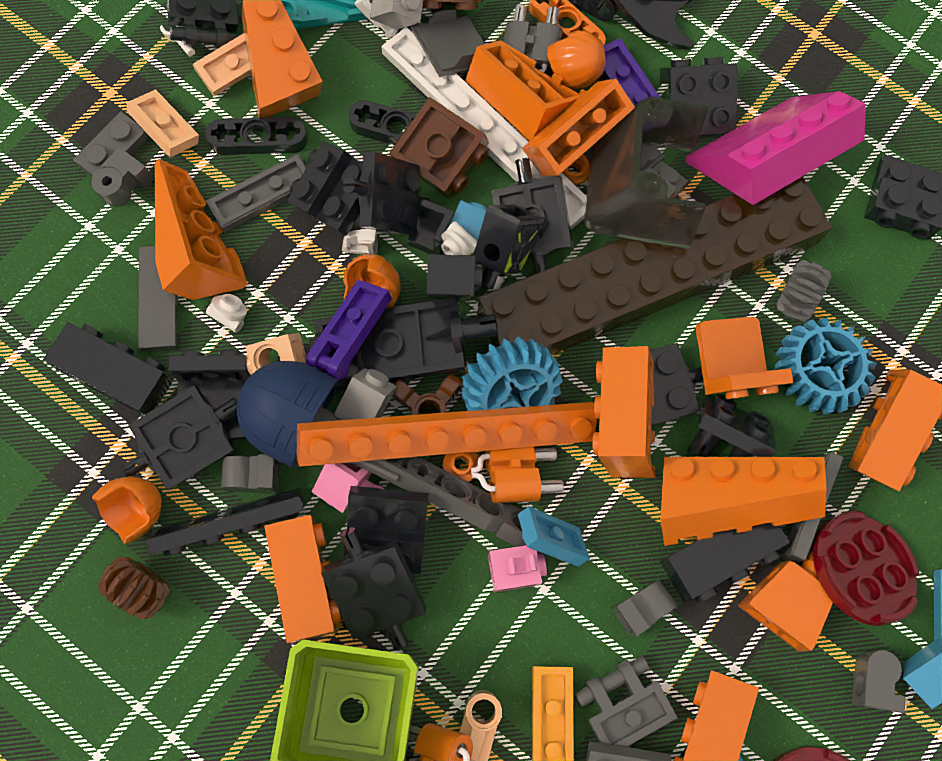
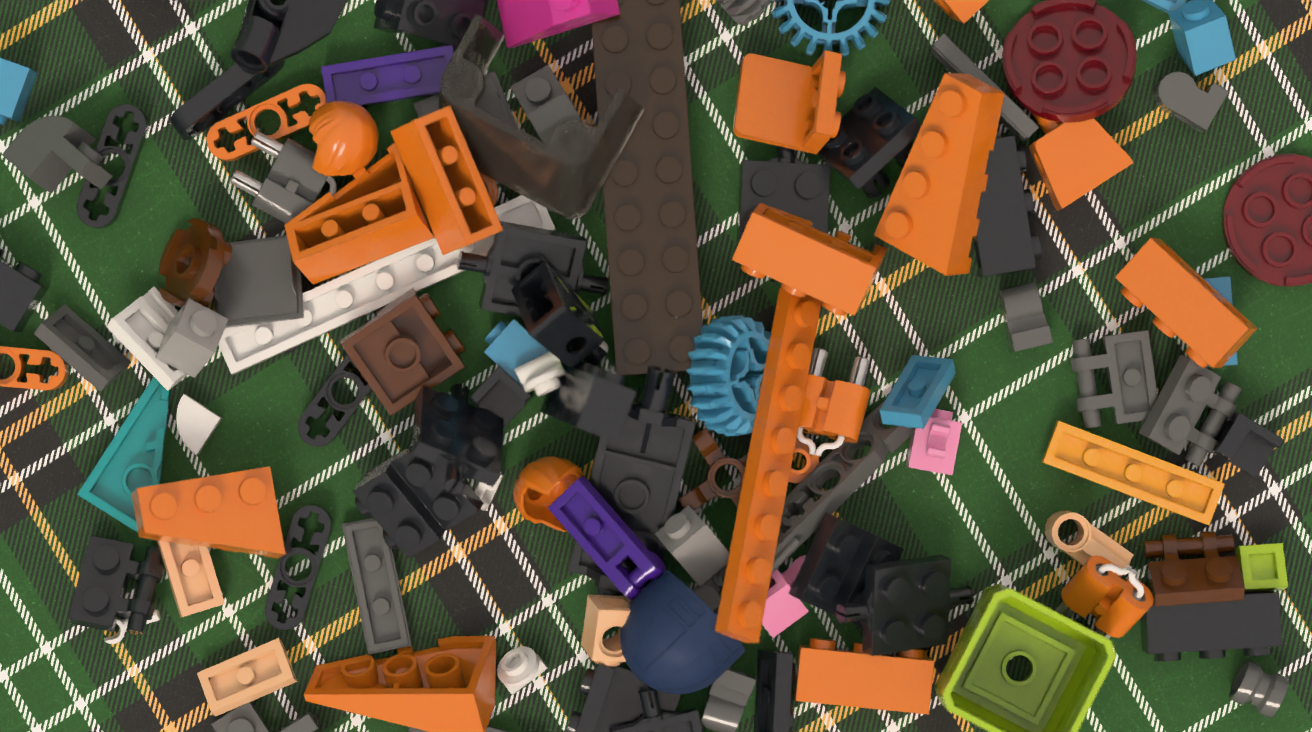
camera: 65 degrees left, 15 degrees up
(337, 40) = (195, 423): none -> white tile

